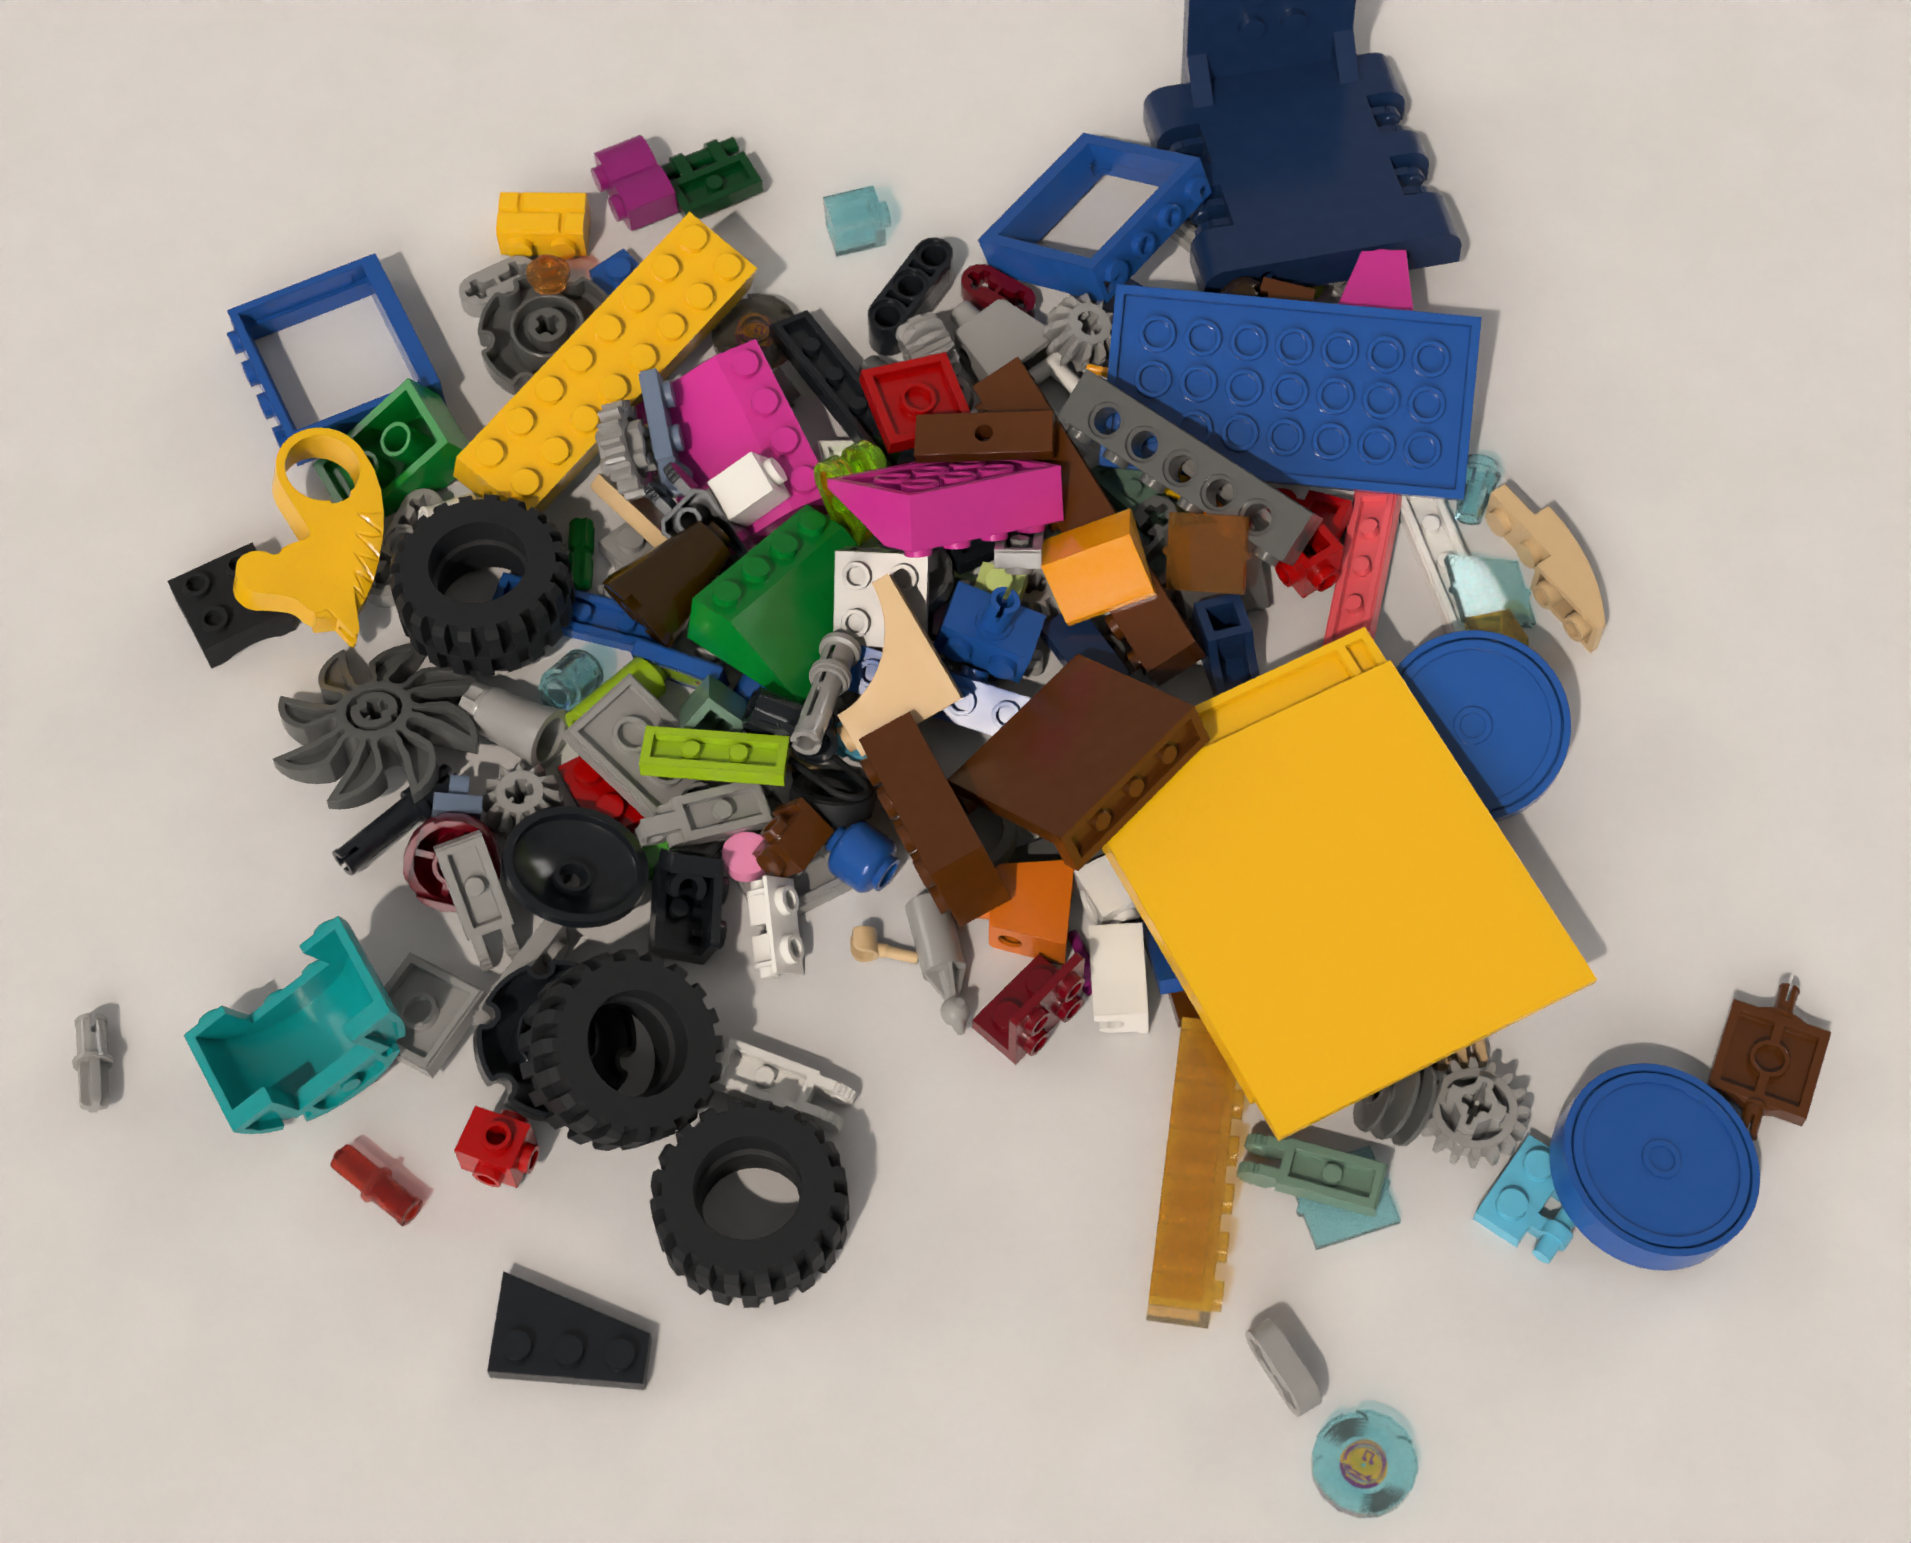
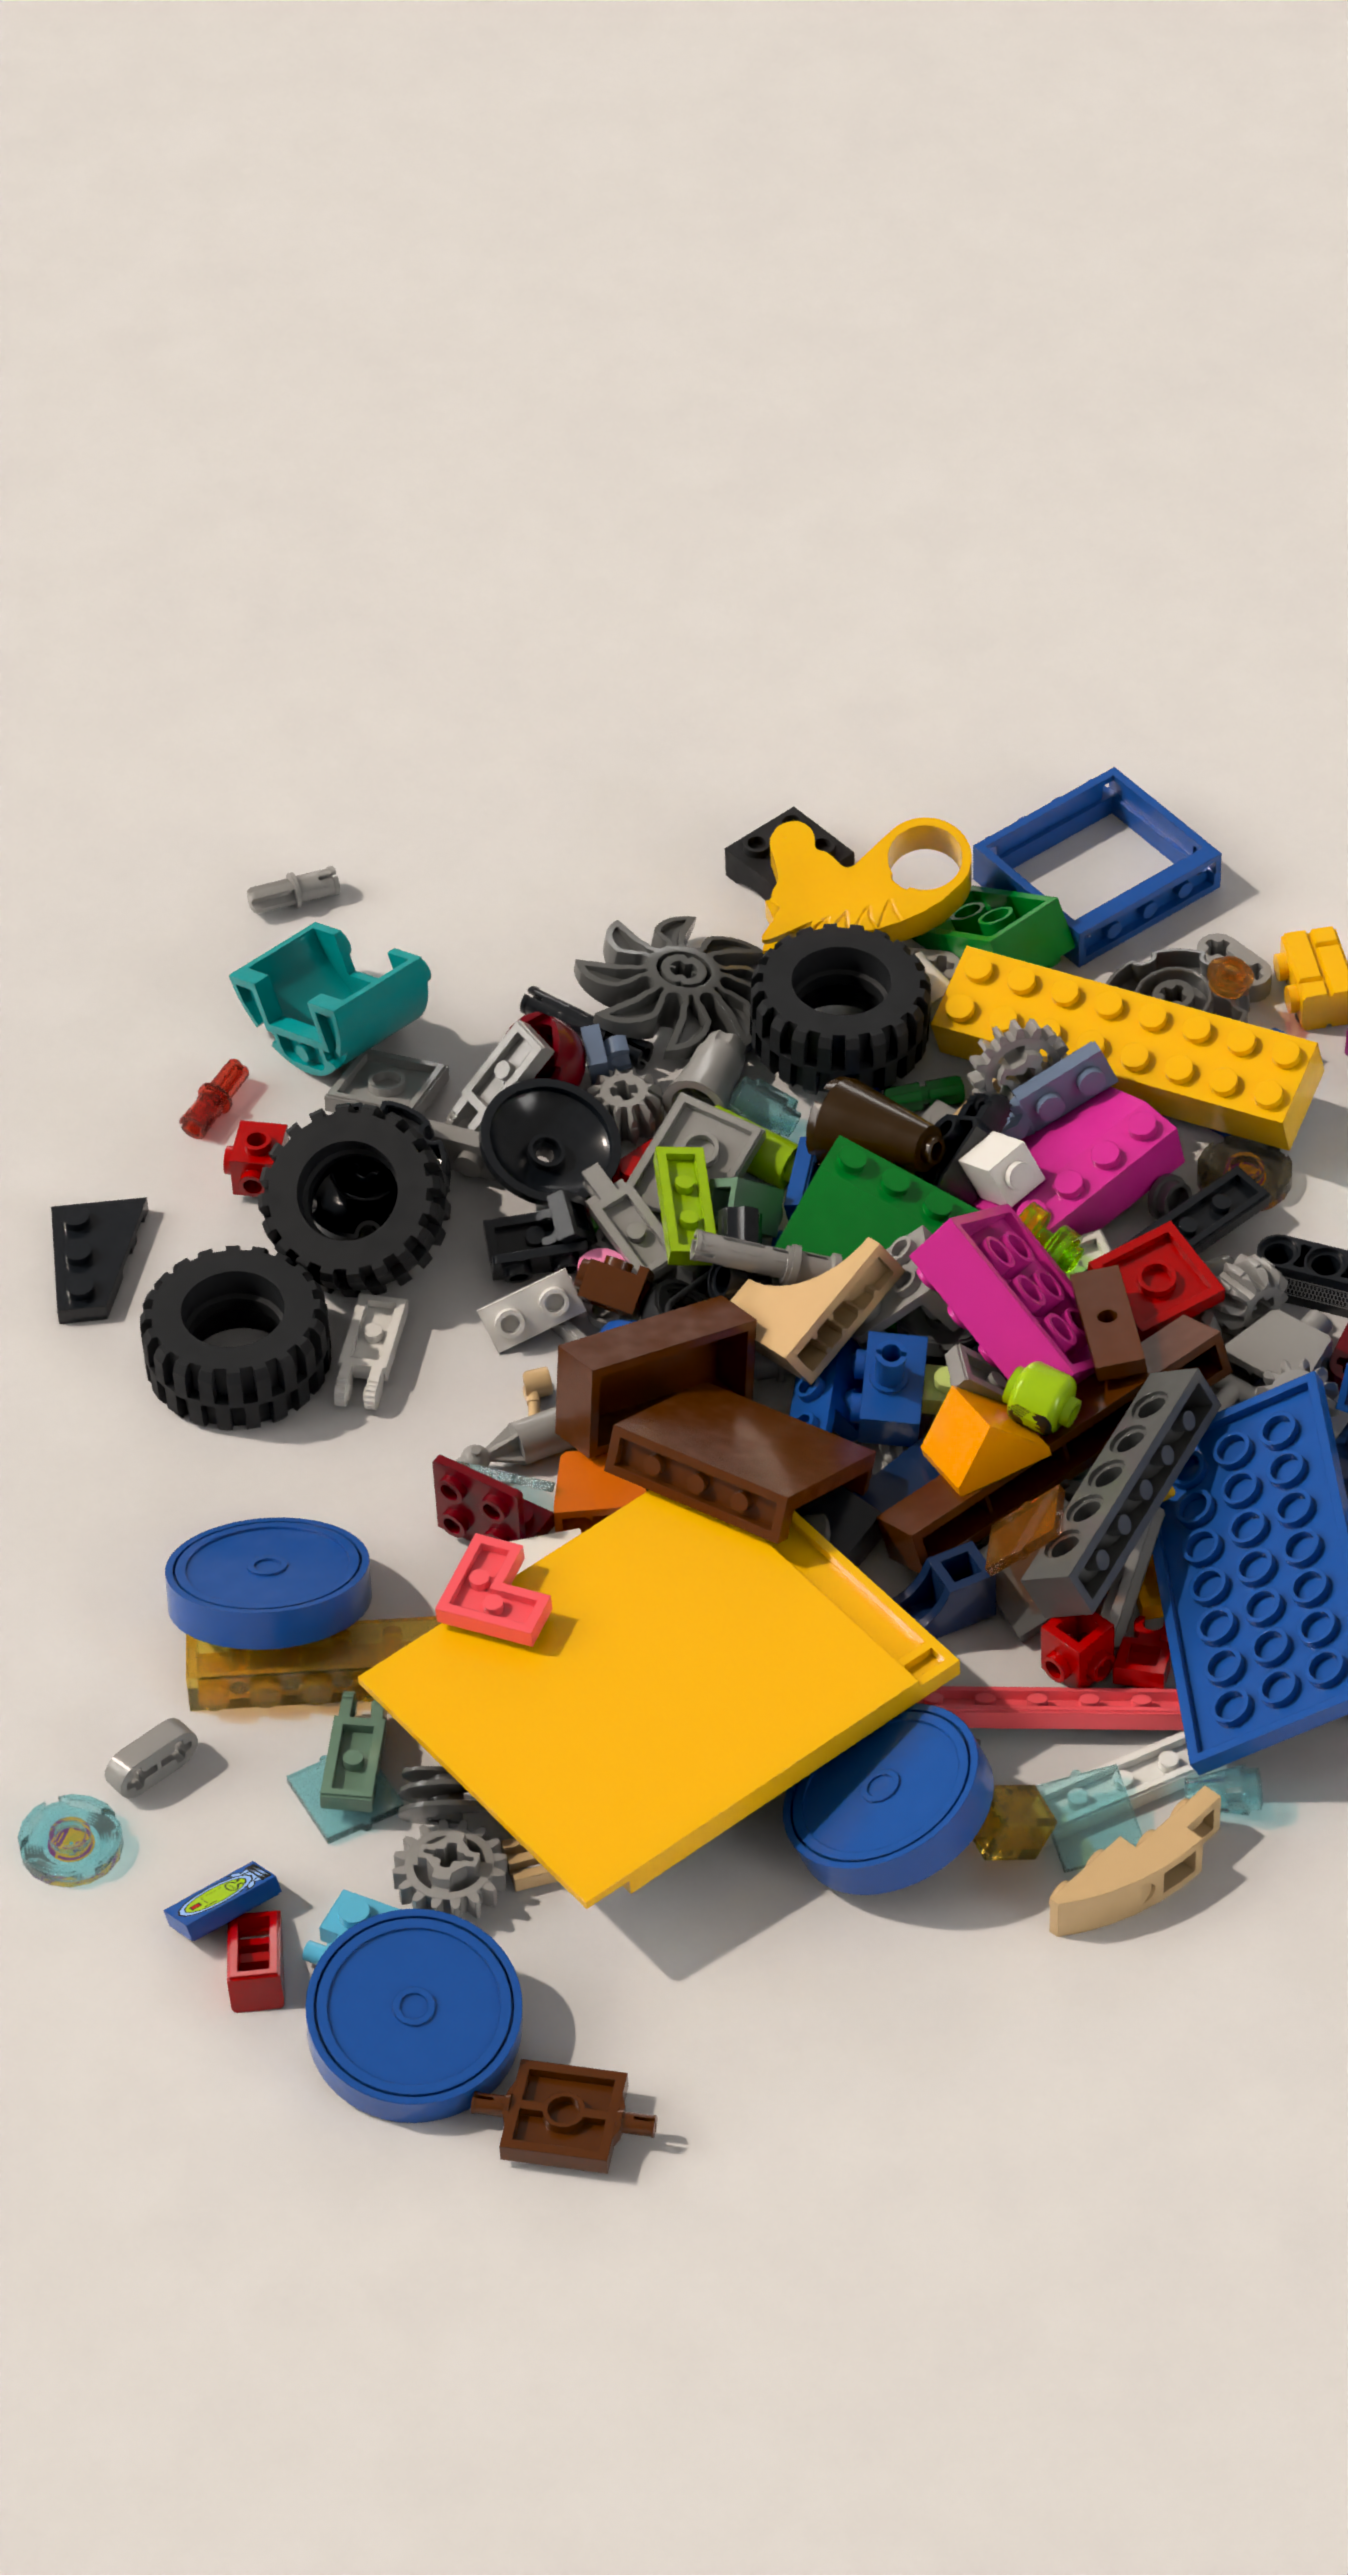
camera: 80 degrees right, 15 degrees down
(1007, 984) = (512, 1478): none -> clear light blue piece
(1081, 497) = (1041, 1398): none -> lime head
(1104, 1215) = (268, 1583): none -> blue brick
(1221, 1004) = (484, 1599): none -> coral plate
(1474, 1325) = (222, 1901): none -> blue tile
(1562, 1288) = (255, 1964): none -> red slope

